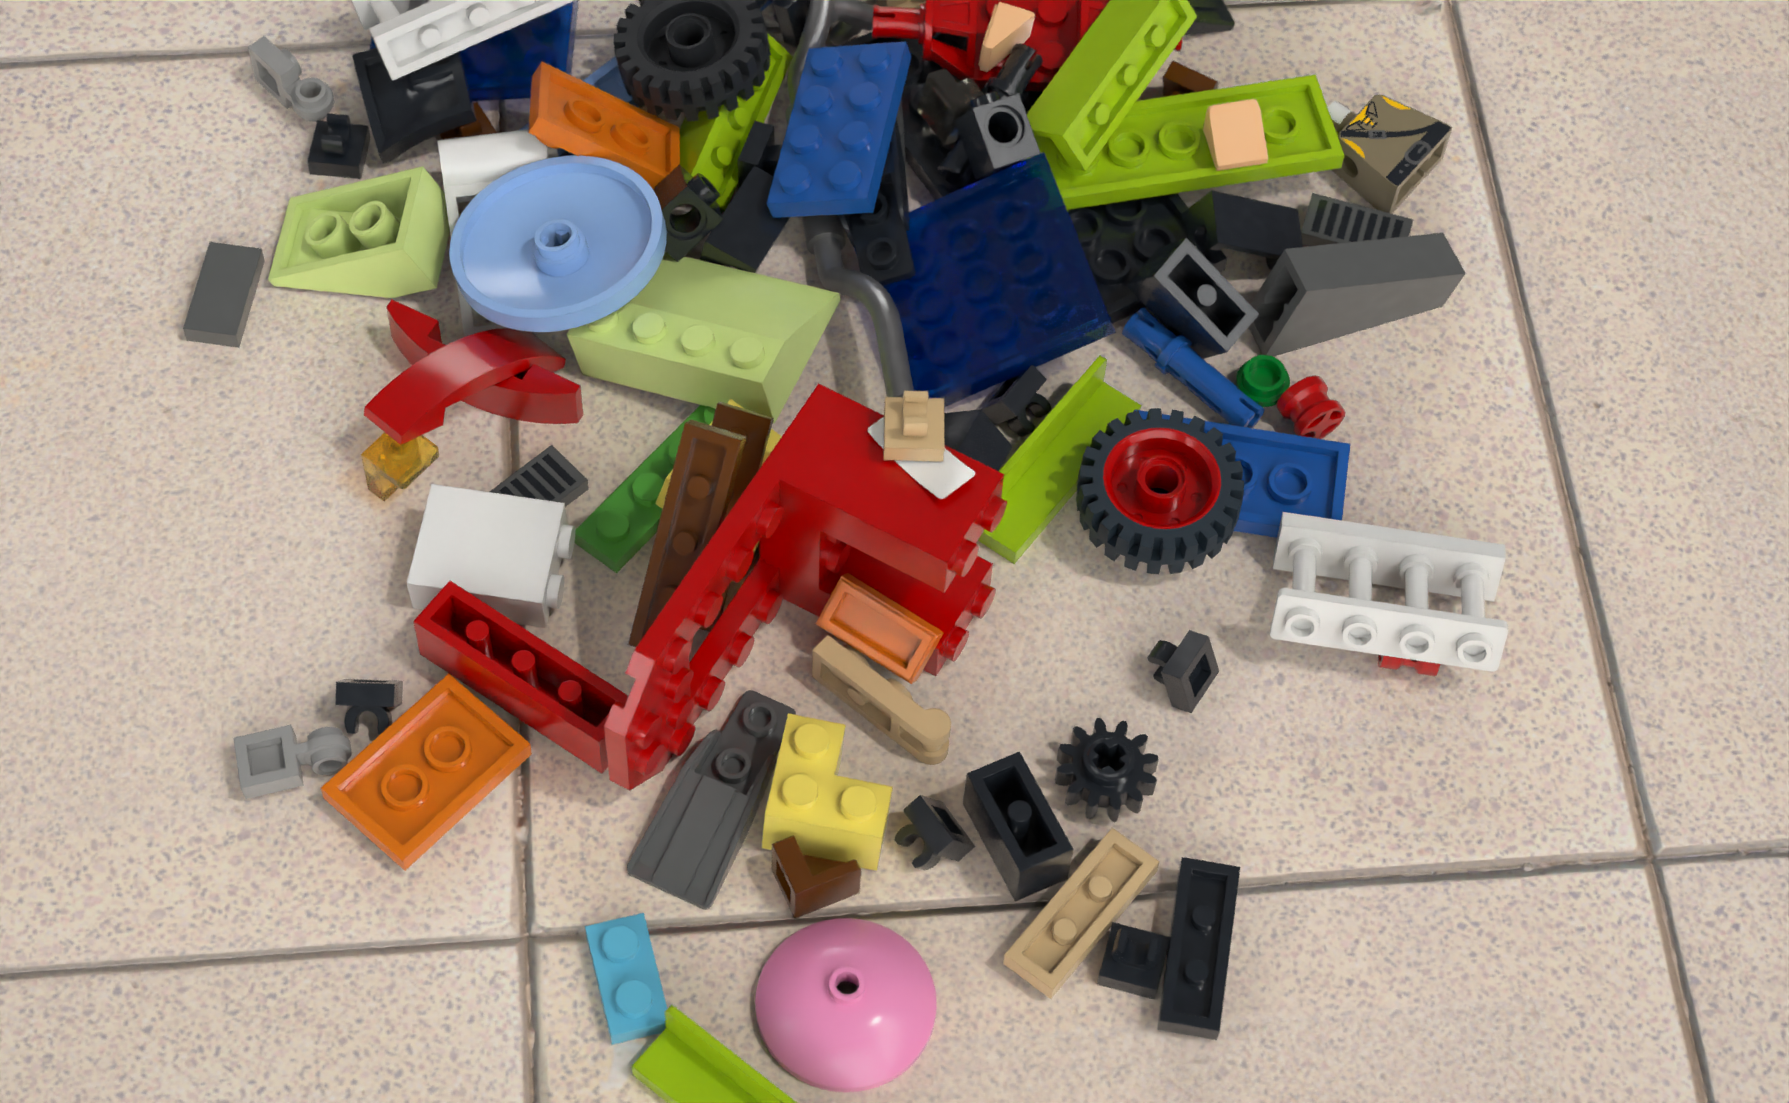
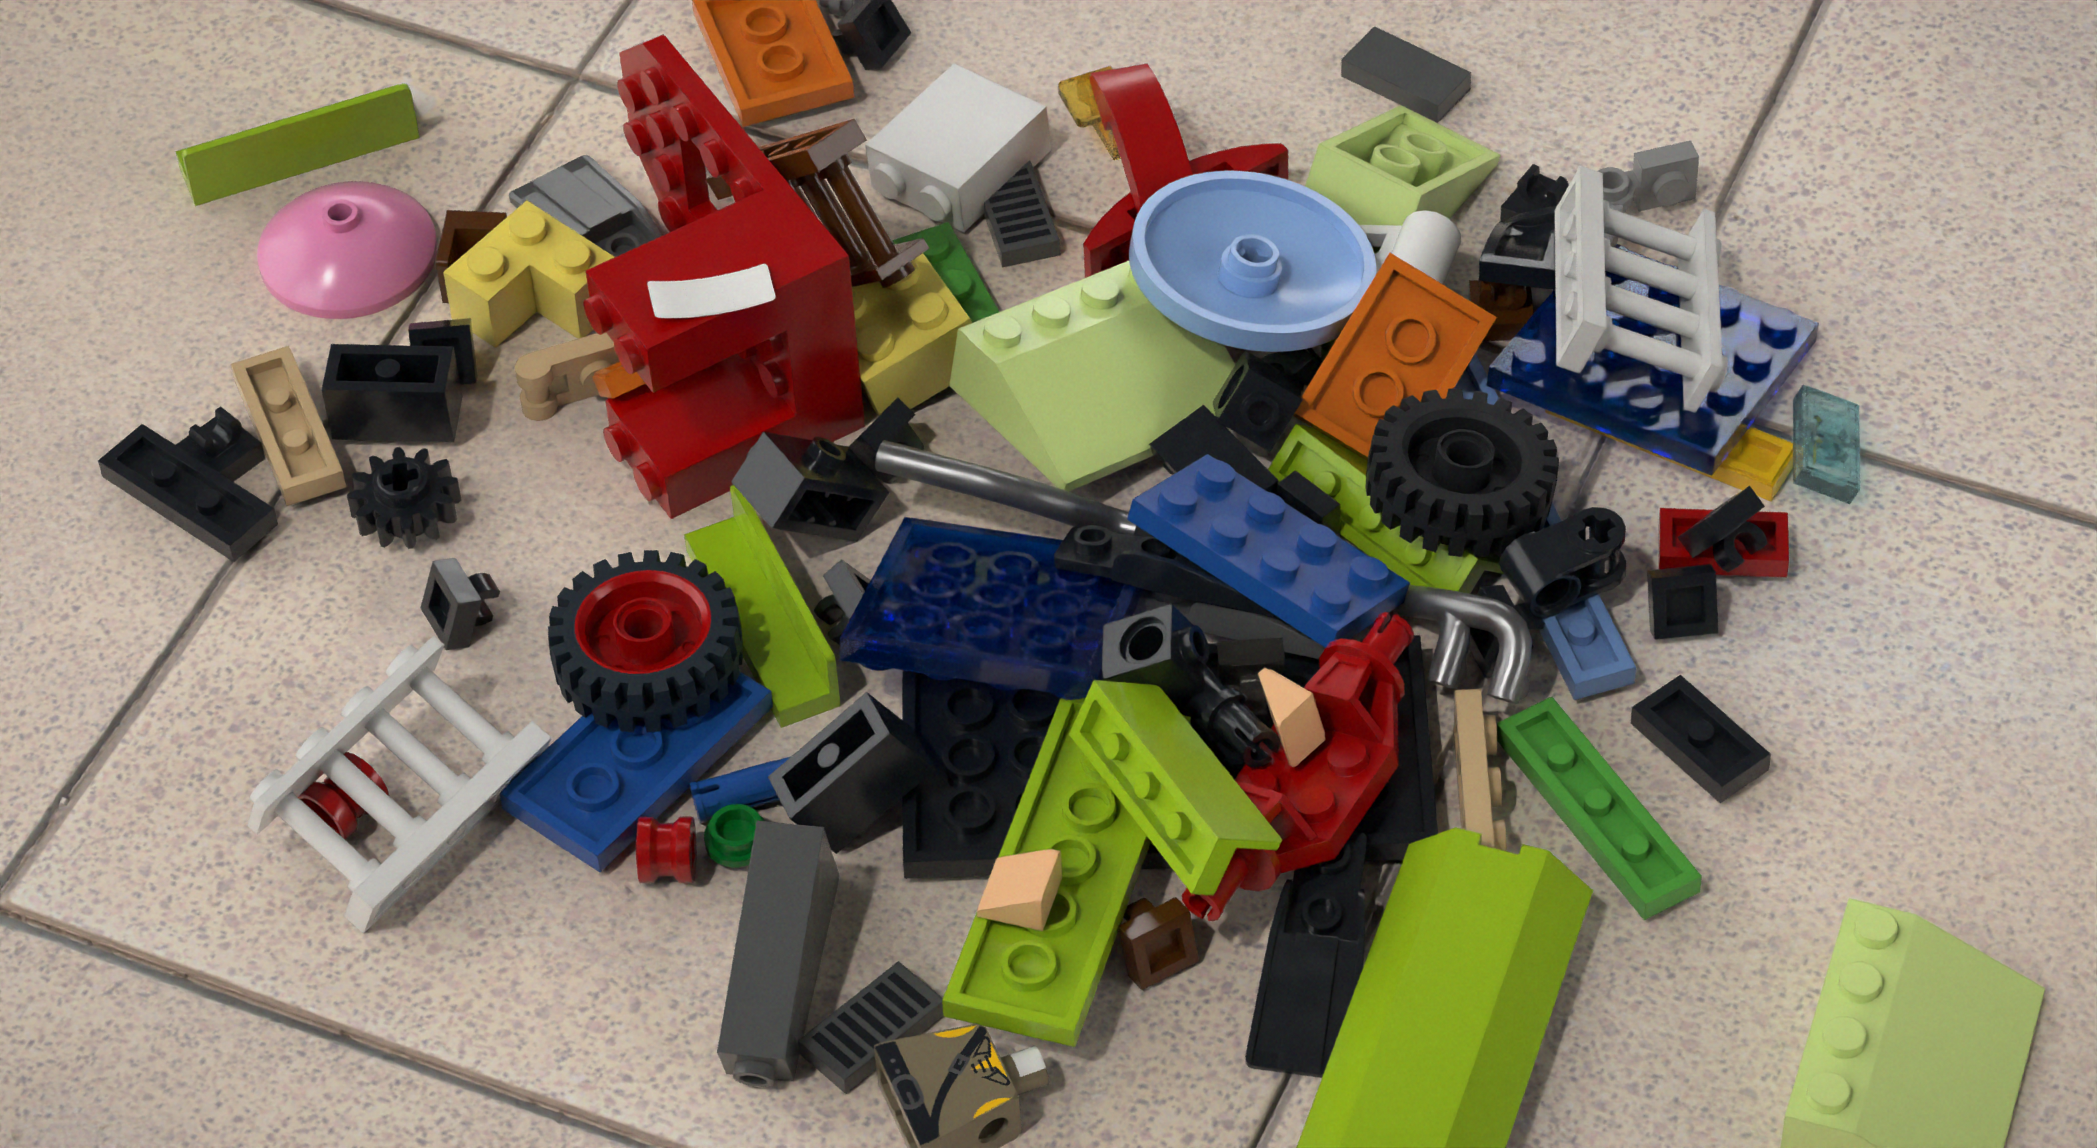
camera: 125 degrees right, 10 degrees down
(518, 672) = (860, 86): red brick -> none
(627, 978) = (483, 117): medium azure plate -> none
(914, 427) = (732, 282): tan tile -> none
(1243, 225) = (912, 876): black hinge -> none

